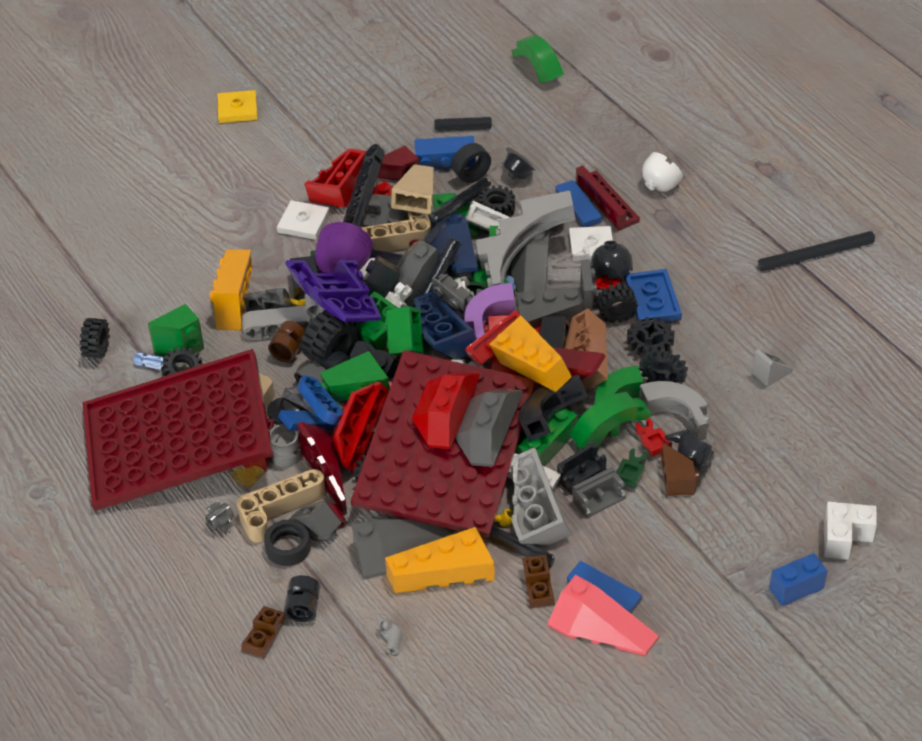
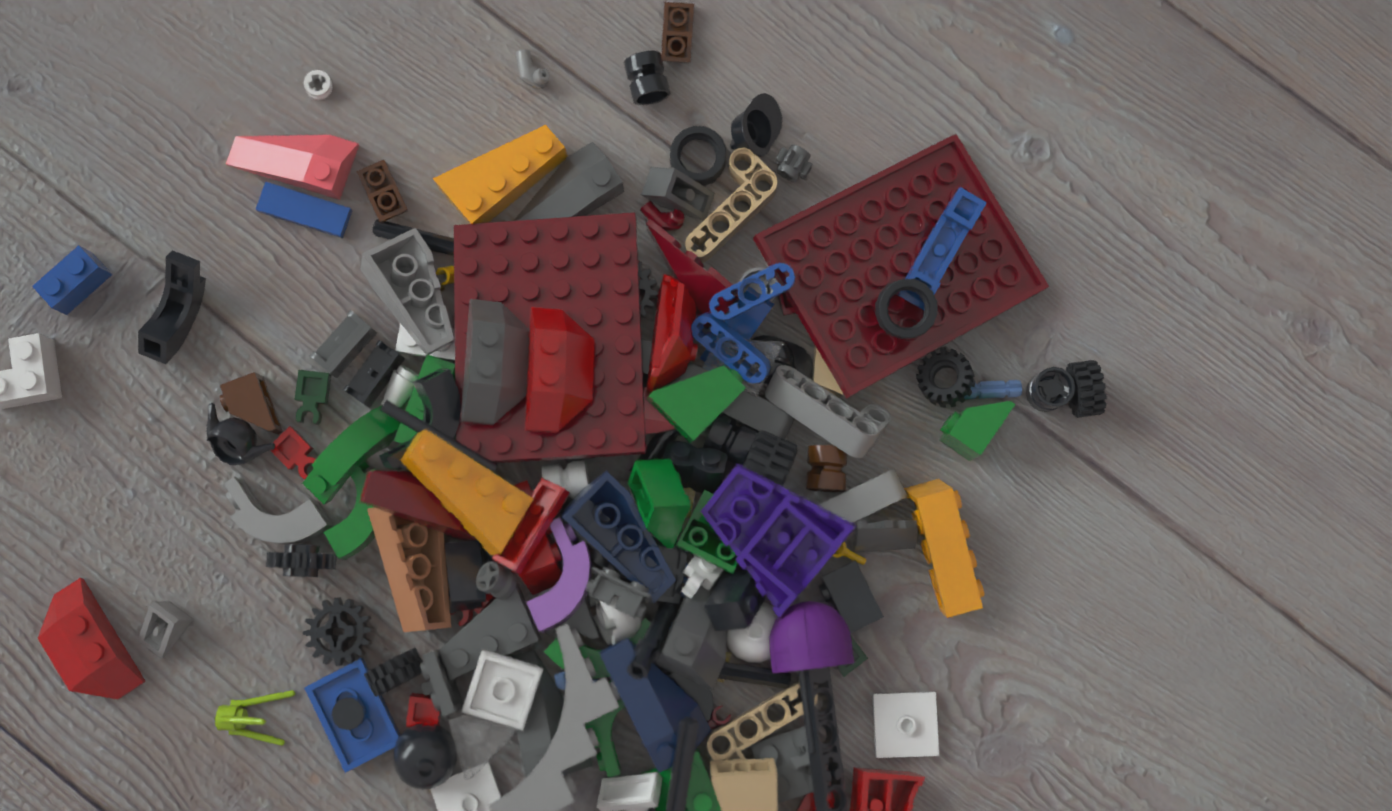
camera: 160 degrees right, 35 degrees up
(117, 345) = (1050, 389): none -> black wheel
(149, 422) = (943, 243): none -> blue slope
(193, 393) = (928, 299): none -> black tyre
(238, 546) = (757, 125): none -> black piece
(270, 358) = (827, 414): none -> light grey beam
(305, 421) = (728, 296): none -> blue beam
(536, 318) = (496, 580): none -> dark grey wheel
(540, 385) = (418, 425): none -> black bar
(548, 272) = (502, 689): none -> white plate
(559, 455) = (400, 386): none -> white cone
(567, 679) = (309, 82): none -> white bush
(654, 291) = (348, 713): none -> black tile
(723, 538) = (177, 309): none -> black arch
(734, 311) = (234, 718): none -> lime plant
(830, 373) = (86, 645): none -> red wedge

